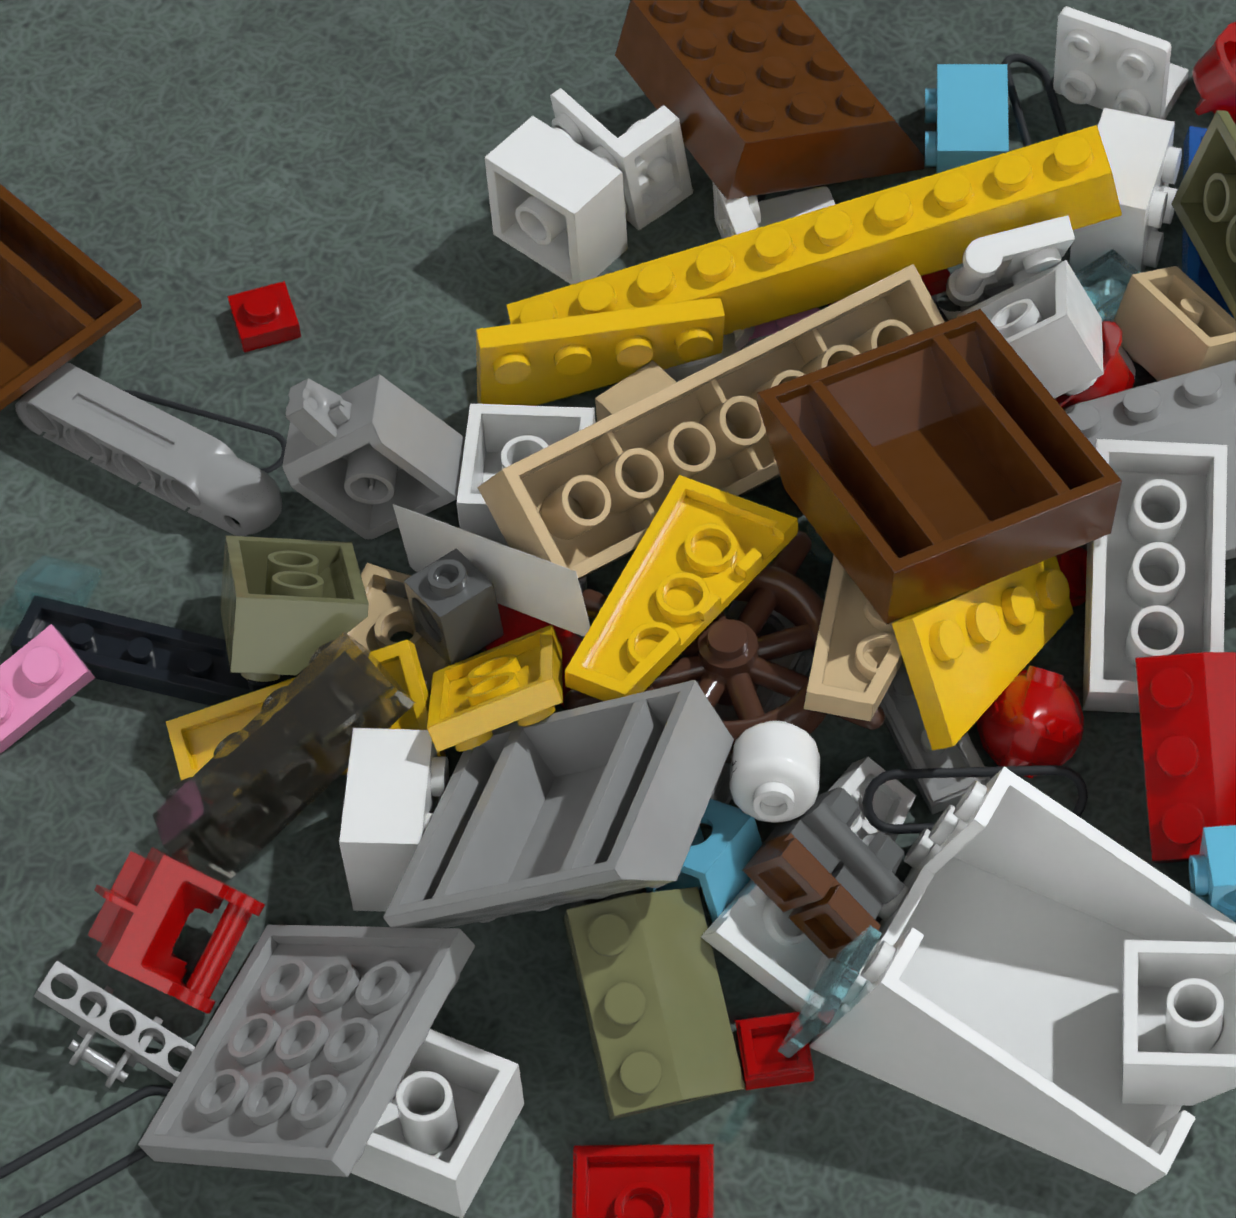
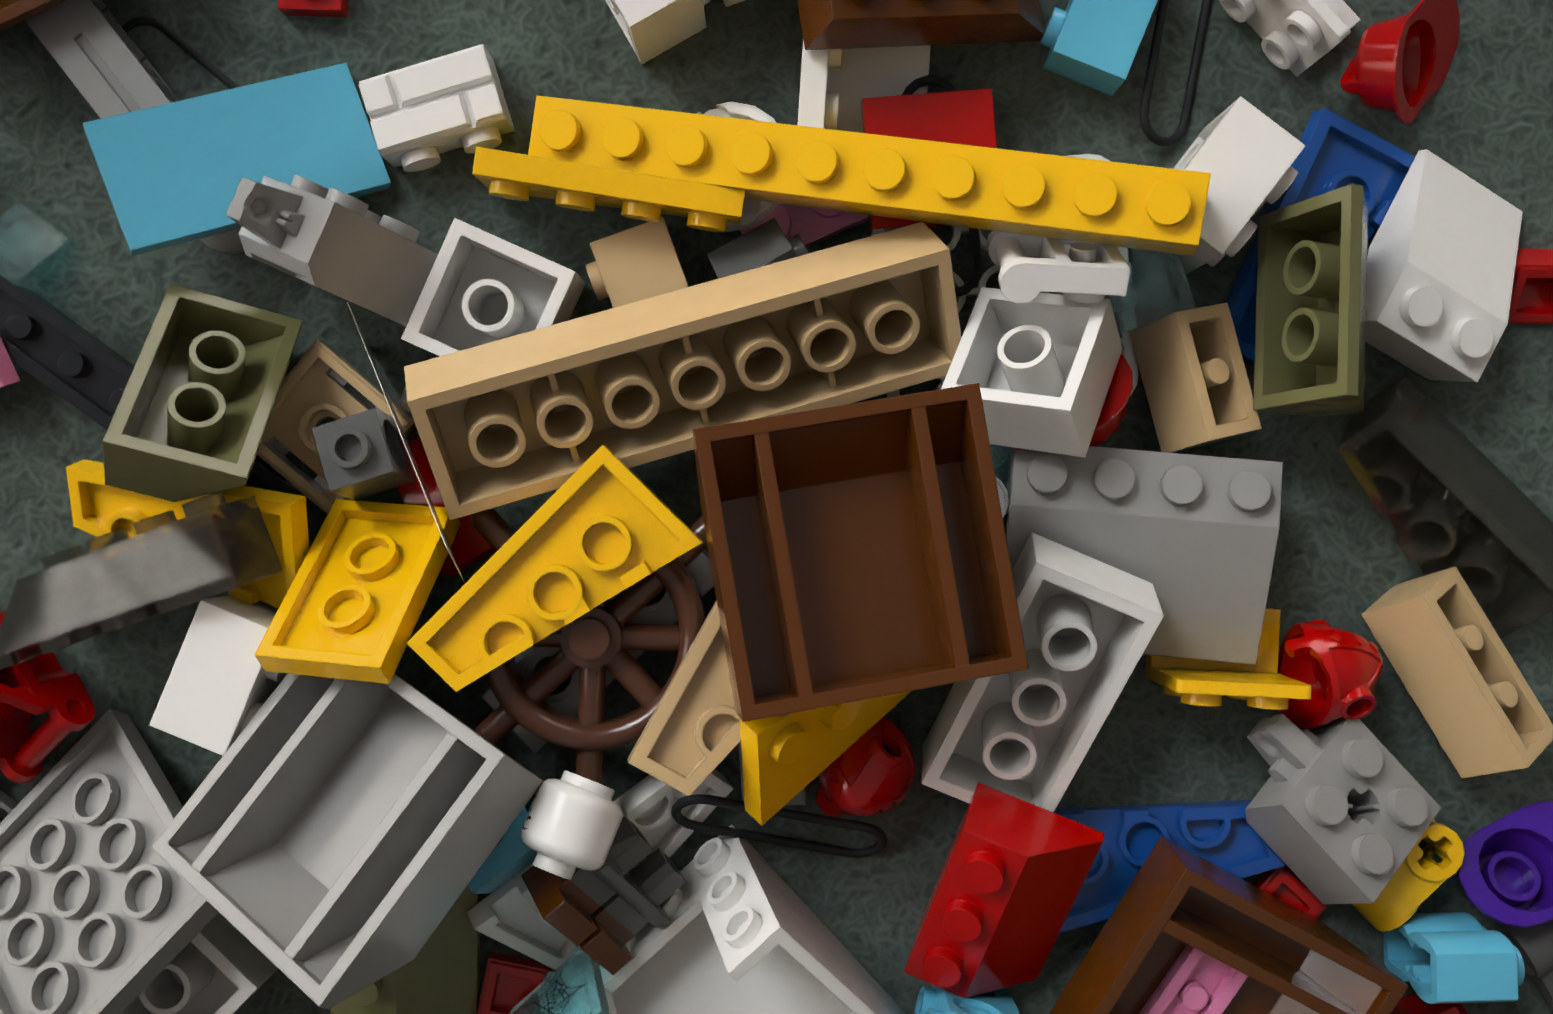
camera: 15 degrees right, 35 degrees up
(221, 440) = (182, 160): none -> medium azure tile
(418, 353) = (437, 108): none -> white brick

